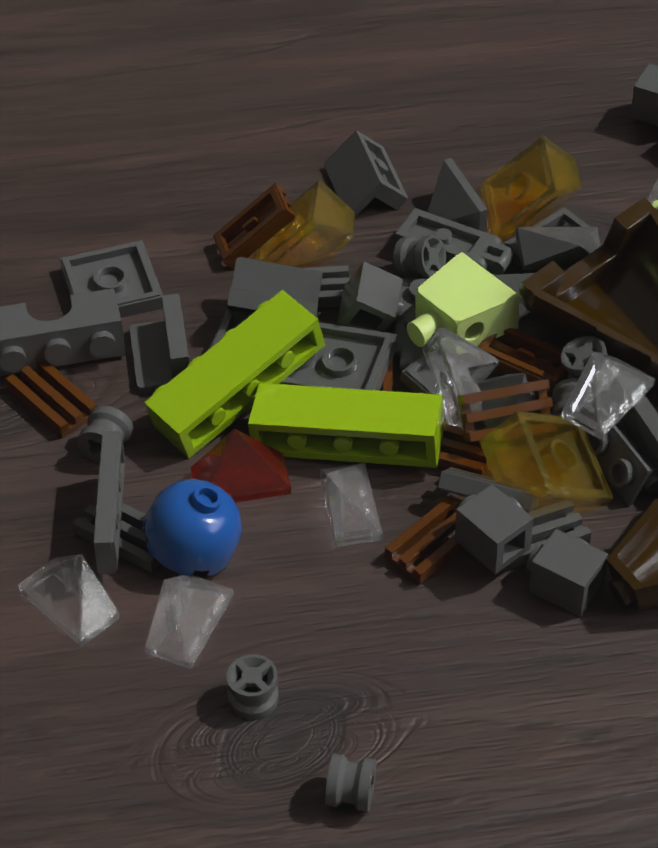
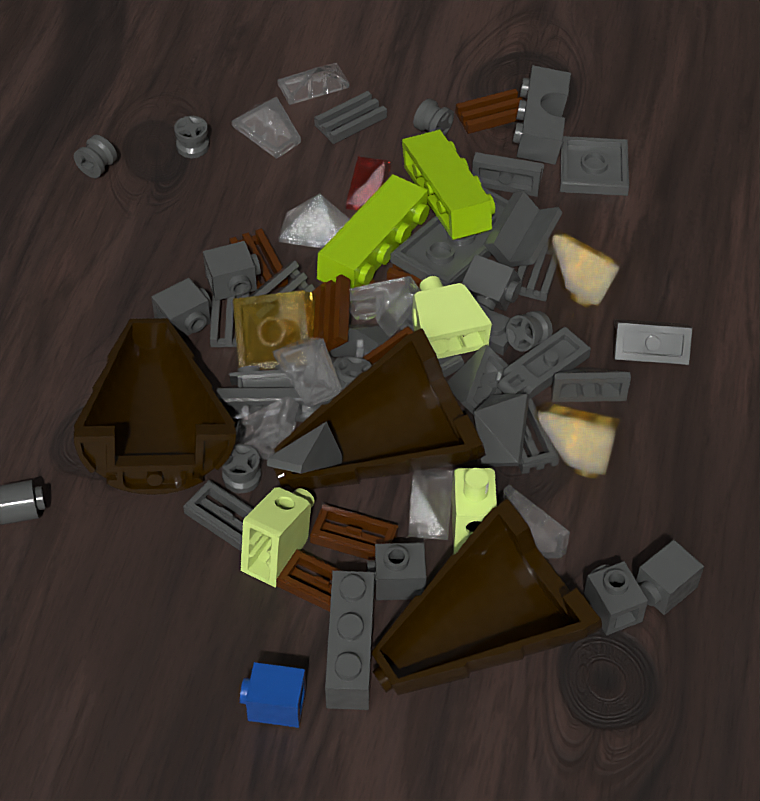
camera: 110 degrees right, 5 degrees up
(109, 502) = (363, 95): dark grey tile -> none
(193, 527) = (324, 134): blue cylinder -> none
(254, 225) = (605, 242): reddish brown tile -> none

